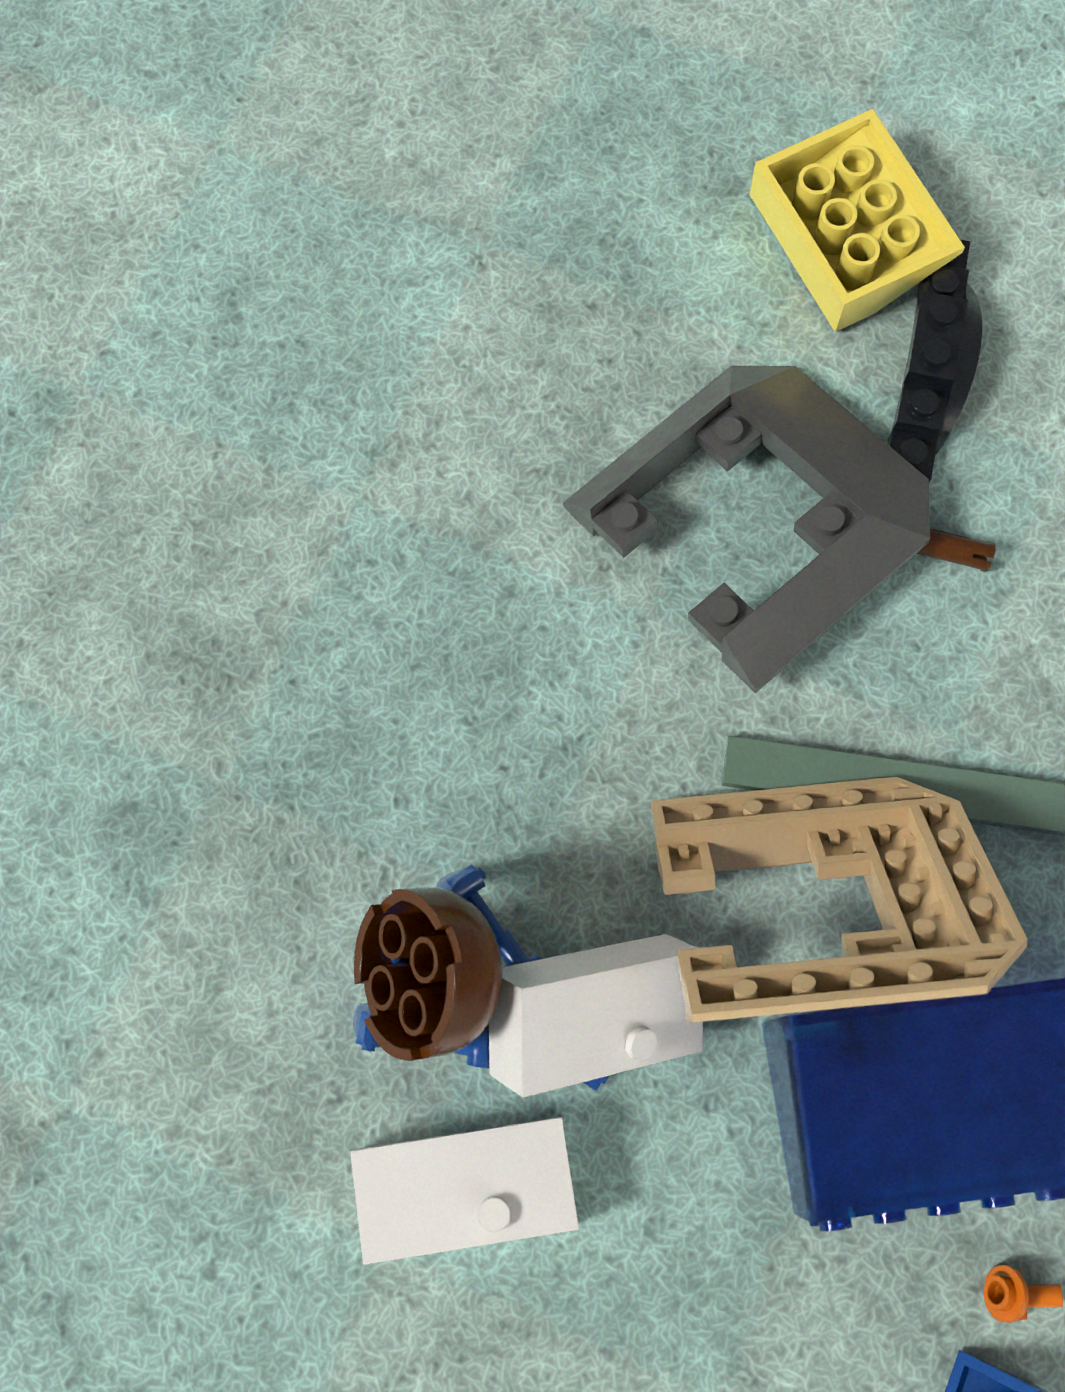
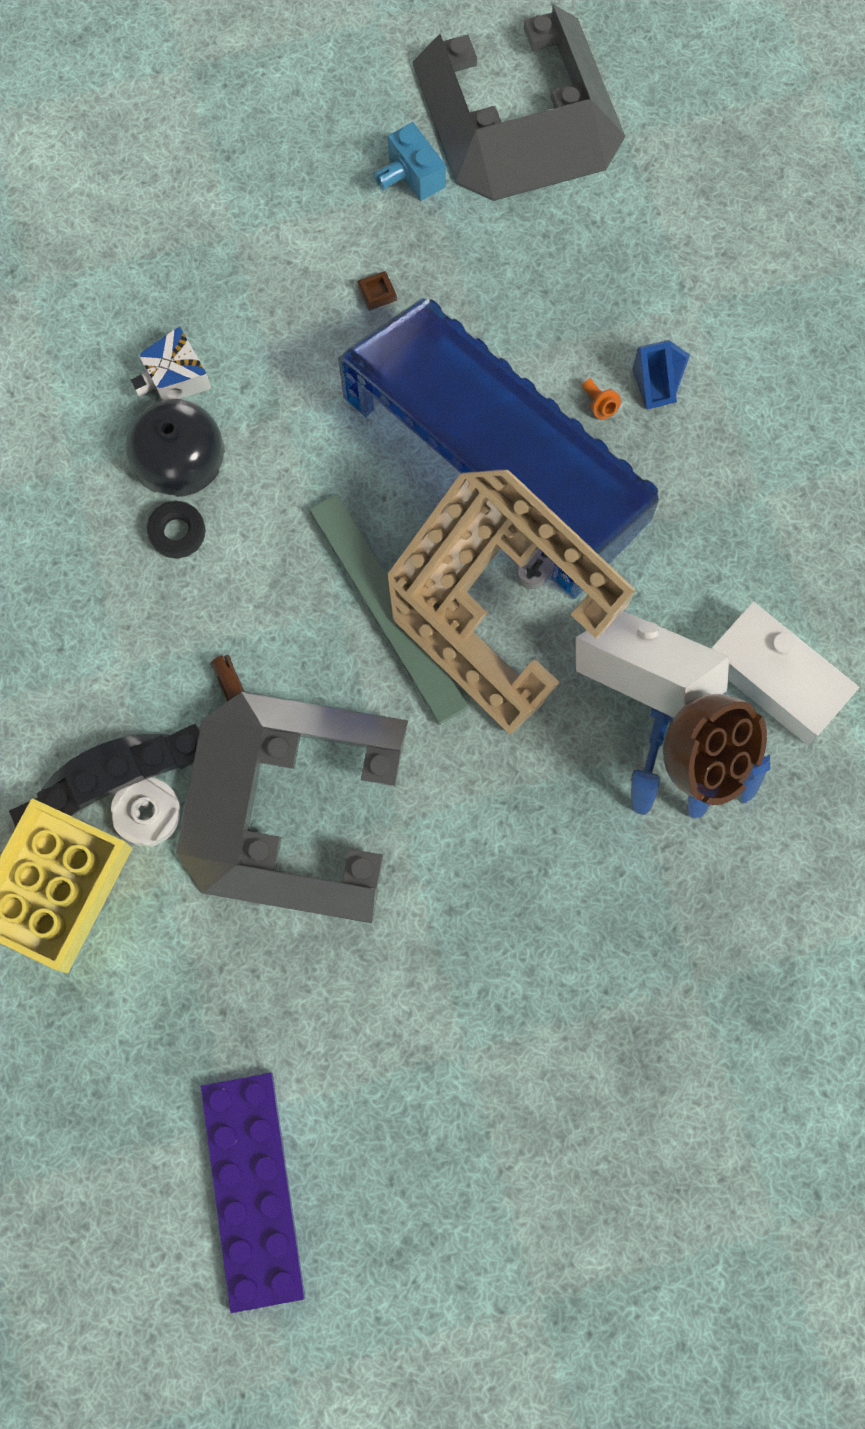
camera: 130 degrees left, 0 degrees up
(403, 218) = (252, 1193): none -> dark purple plate
(861, 390) = (150, 830): none -> white plate

